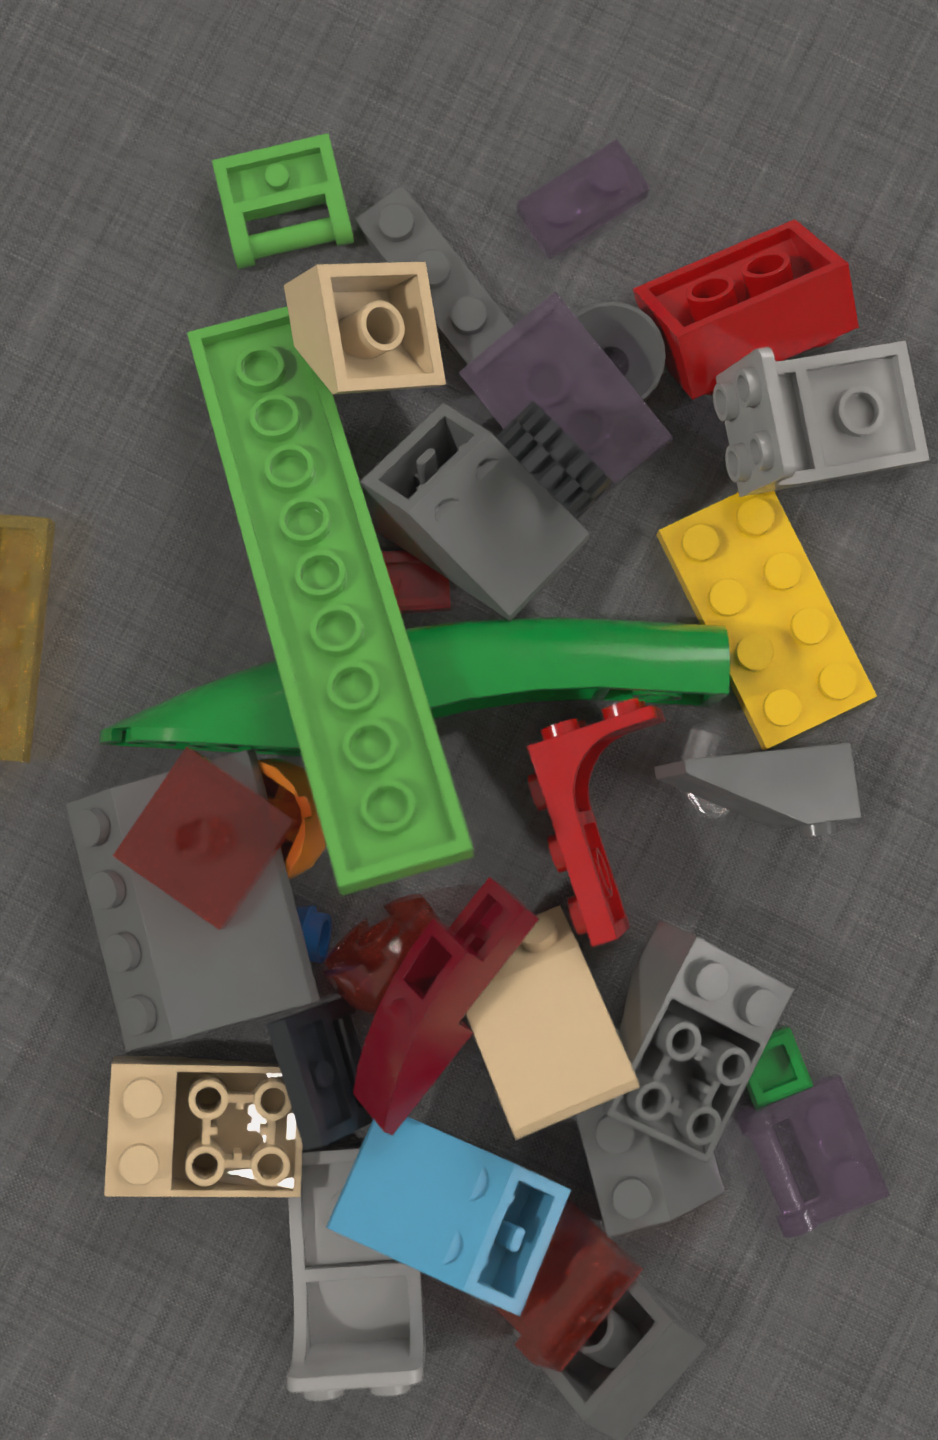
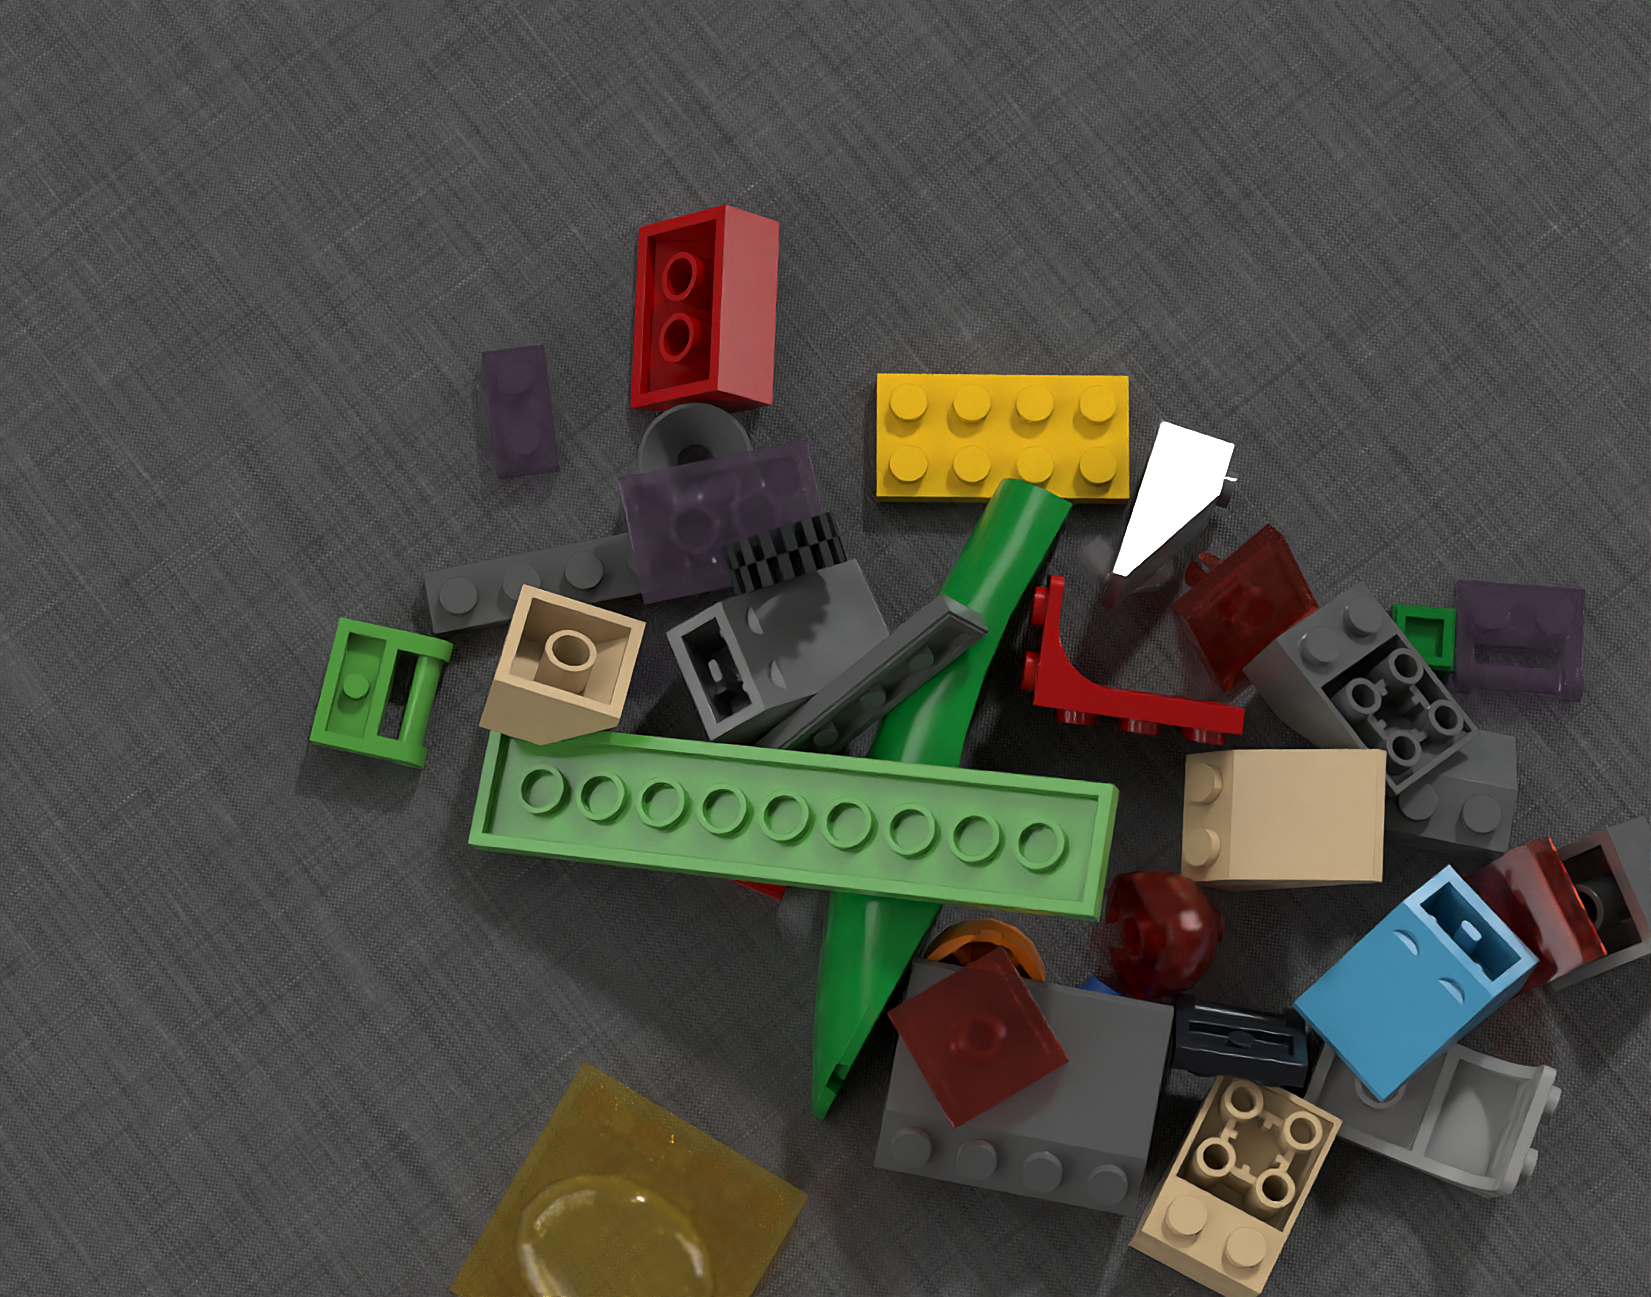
camera: 70 degrees left, 5 degrees down
(422, 1010) = (1228, 916): dark red slope -> none
(482, 599) = (879, 679): none -> dark grey tile
(720, 893) = (1242, 604): none -> clear red tile
(819, 417) = (848, 299): light grey bracket -> none

